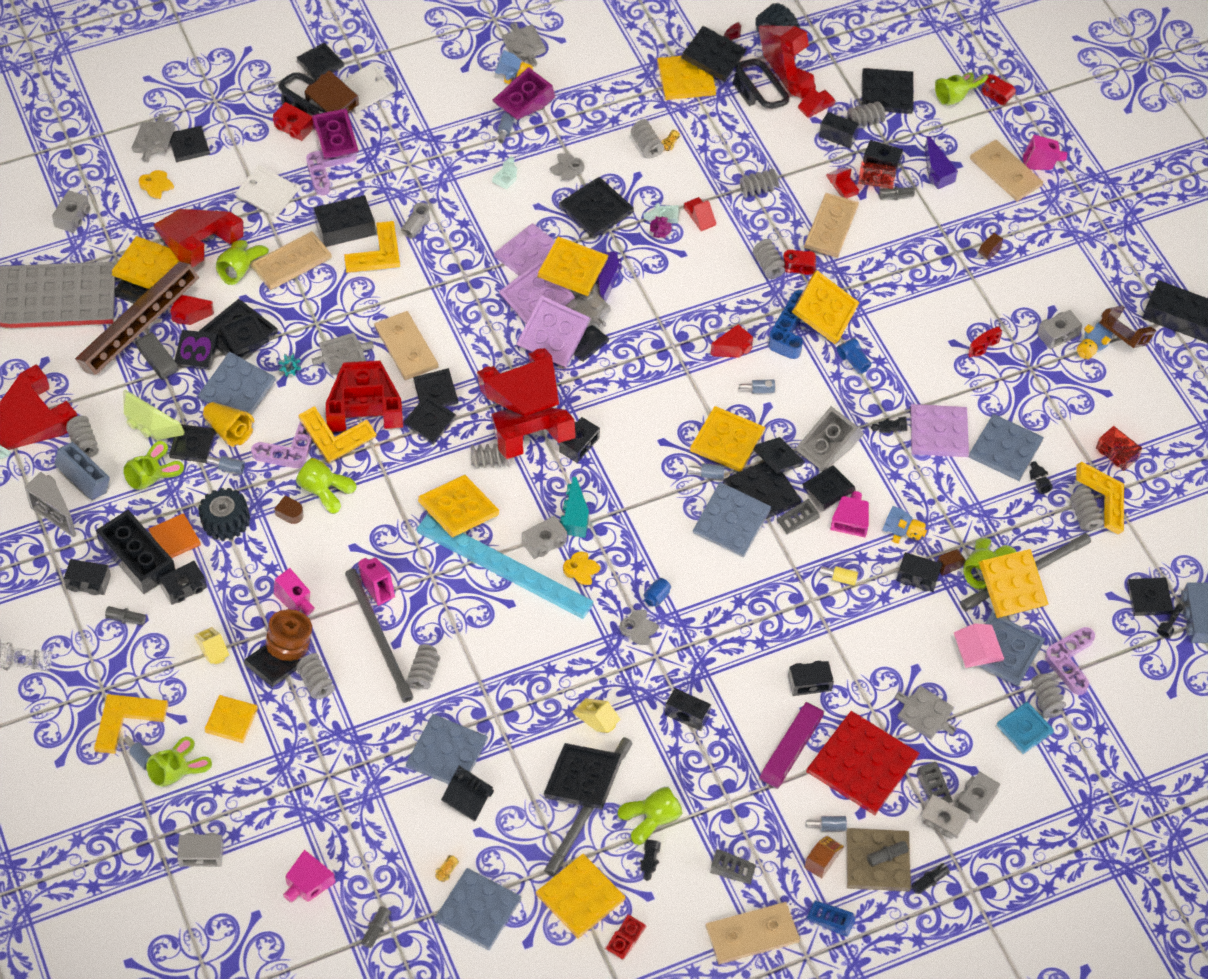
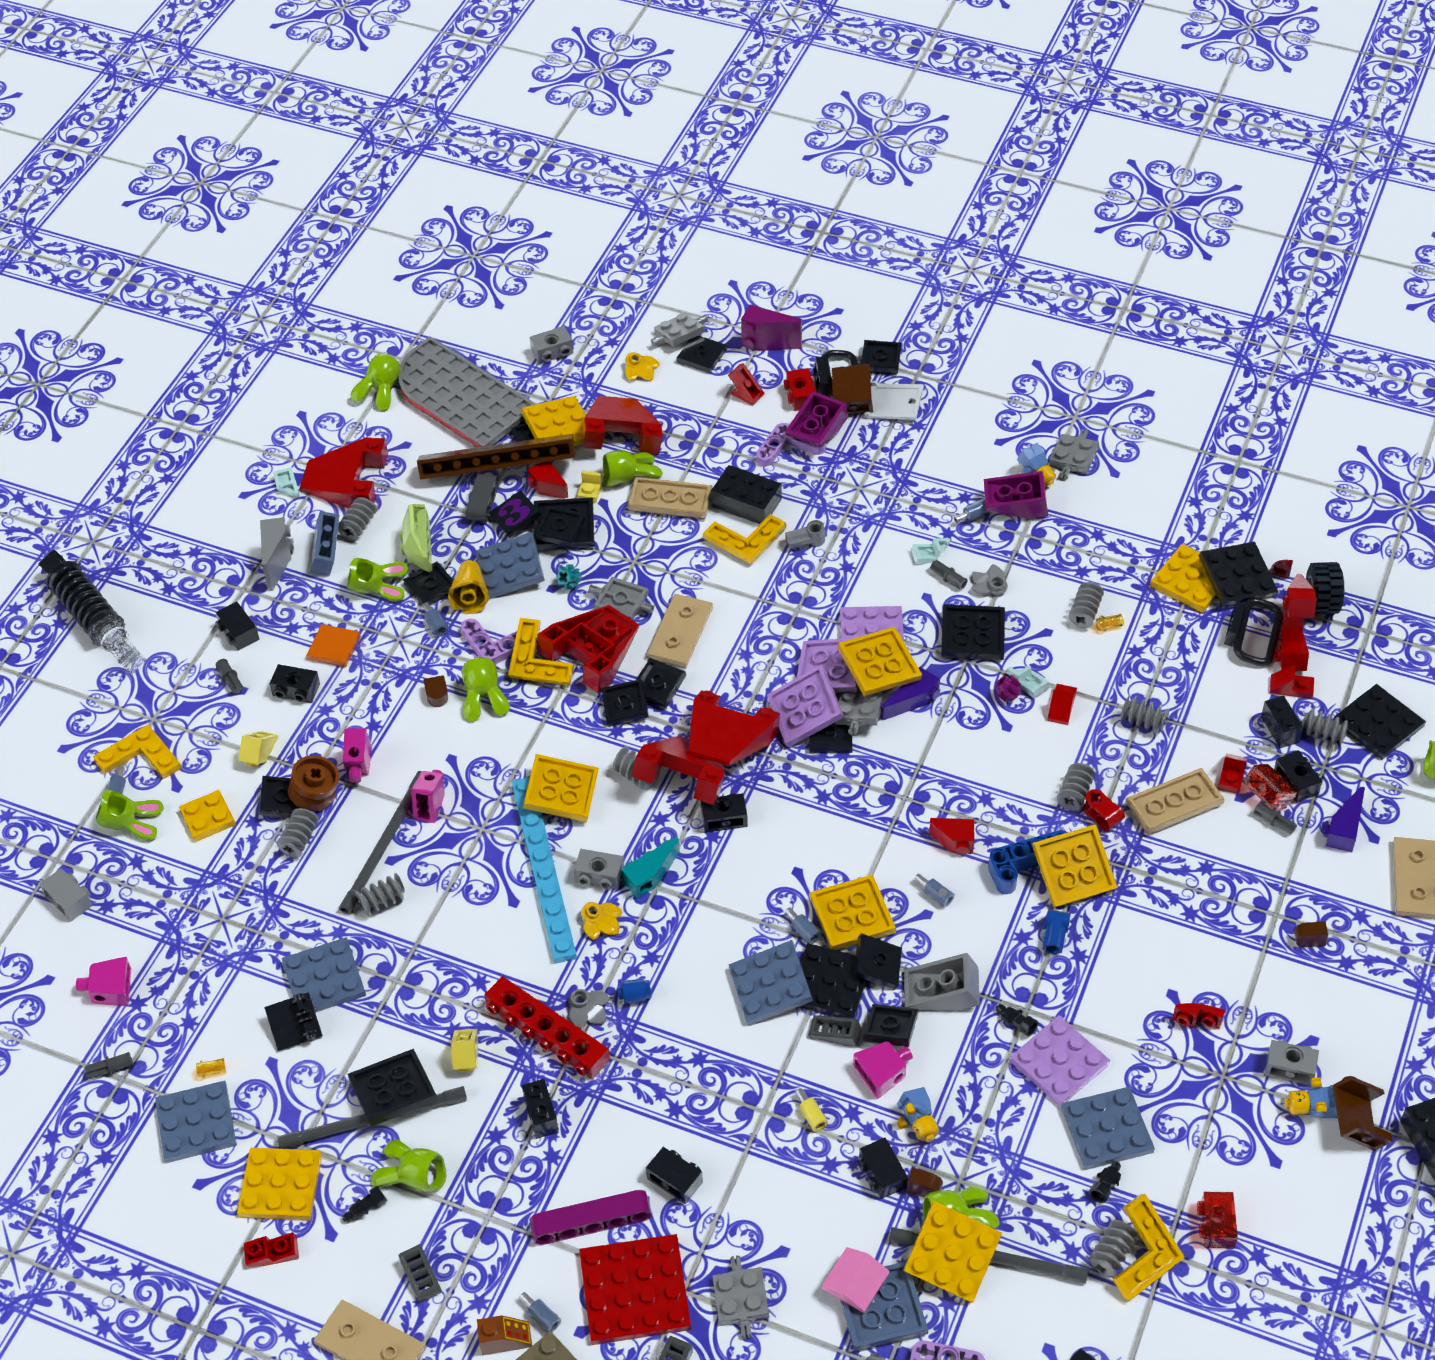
camera: 50 degrees right, 5 degrees down
(135, 551) = (288, 631): black brick -> none
(224, 292) = (590, 485): none -> light yellow bracket
(224, 514) = (383, 654): black wheel -> none
(225, 92) = (770, 330): none -> magenta slope
(251, 145) = (746, 386): none -> red slope
(270, 193) = (717, 430): white container -> none
(538, 180) = (949, 574): none -> dark grey axle
(638, 652) = (506, 992): none -> red brick

